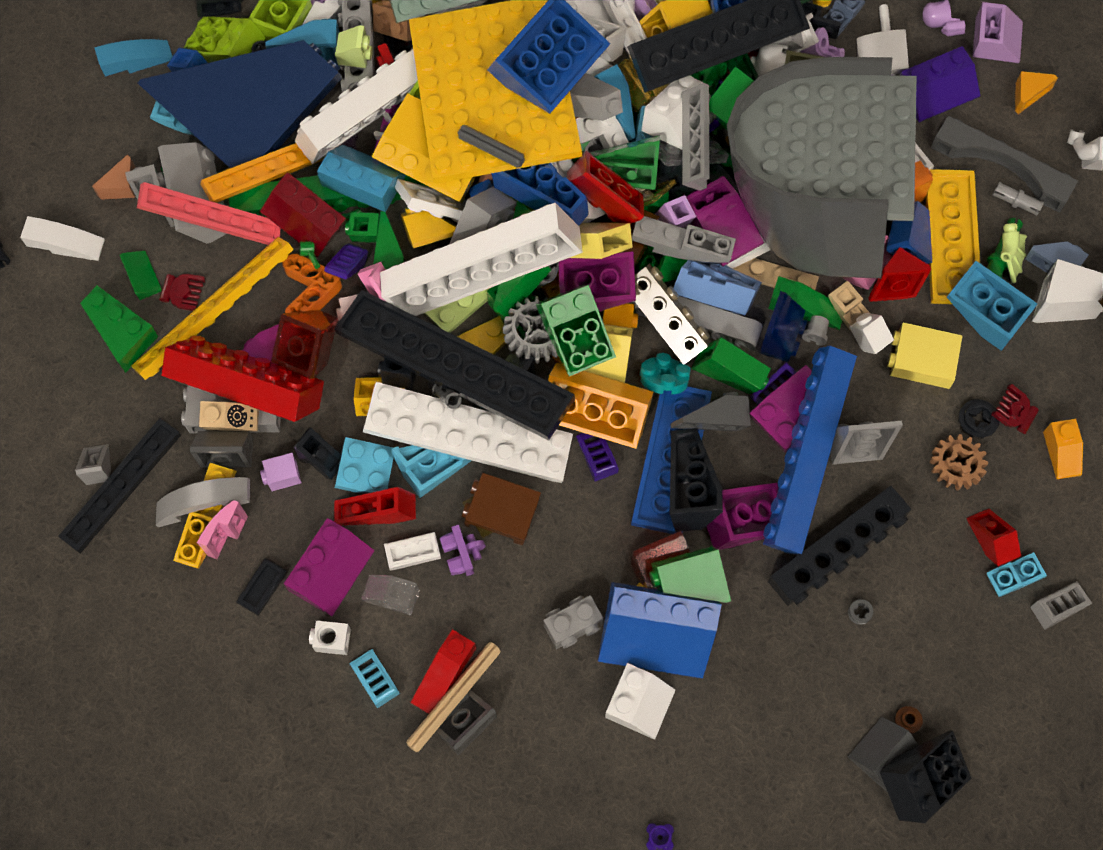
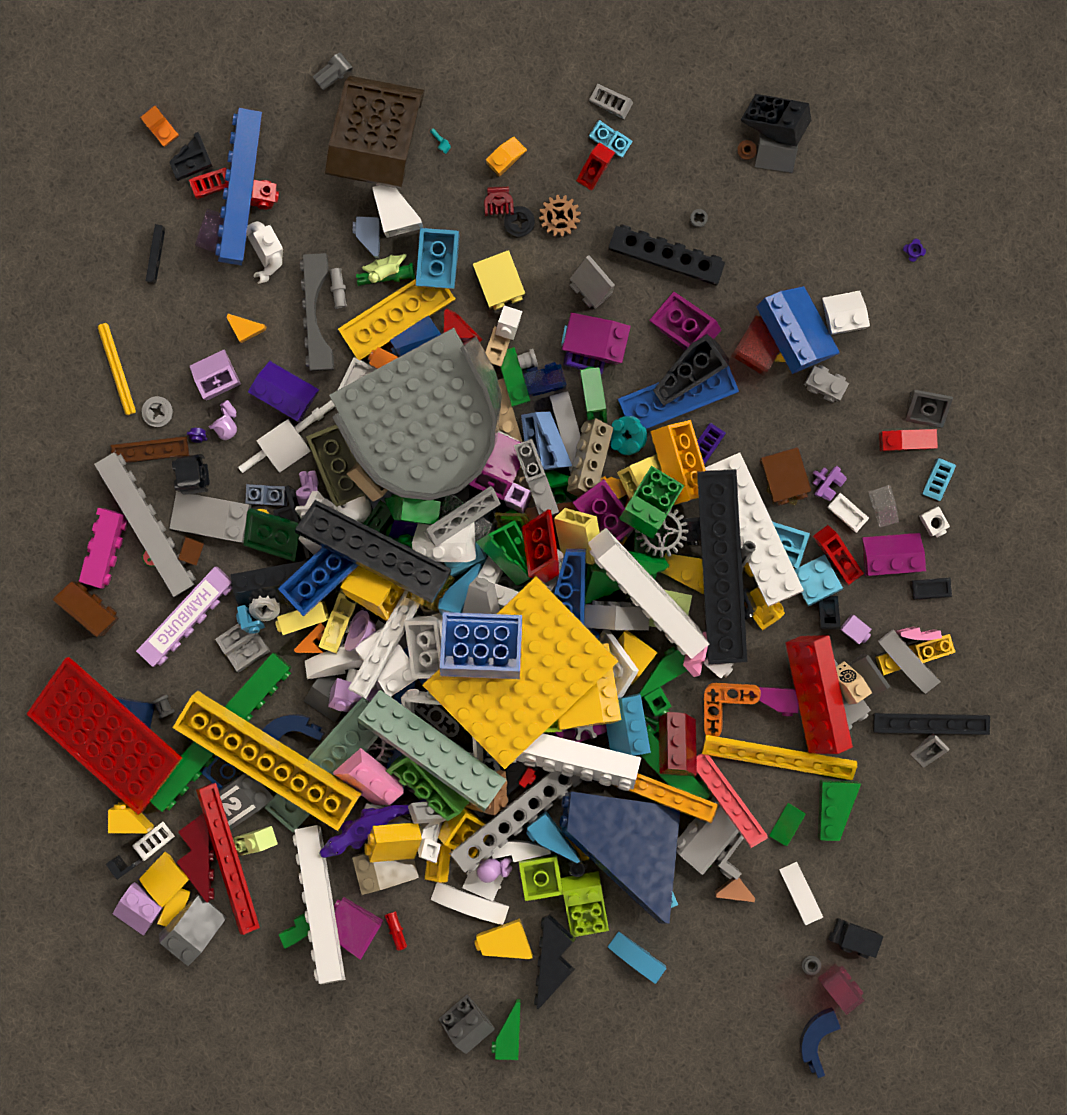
camera: 125 degrees left, 20 degrees up
(178, 290) = (780, 790): dark red piece -> none
(185, 59) = (617, 915): blue bracket -> none
(304, 341) = (770, 671): clear red slope -> none
(307, 249) = (698, 726): green hand -> none
(347, 261) = (681, 697): dark purple slope -> none
(353, 47) = (542, 798): yellowish green slope -> none
(453, 697) = (916, 423): tan axle -> none
(491, 146) = (574, 636): dark grey axle -> none
(692, 575) = (757, 328): slope -> none
(723, 414) = (634, 384): dark grey slope -> none
(809, 450) = (624, 309): blue brick -> none

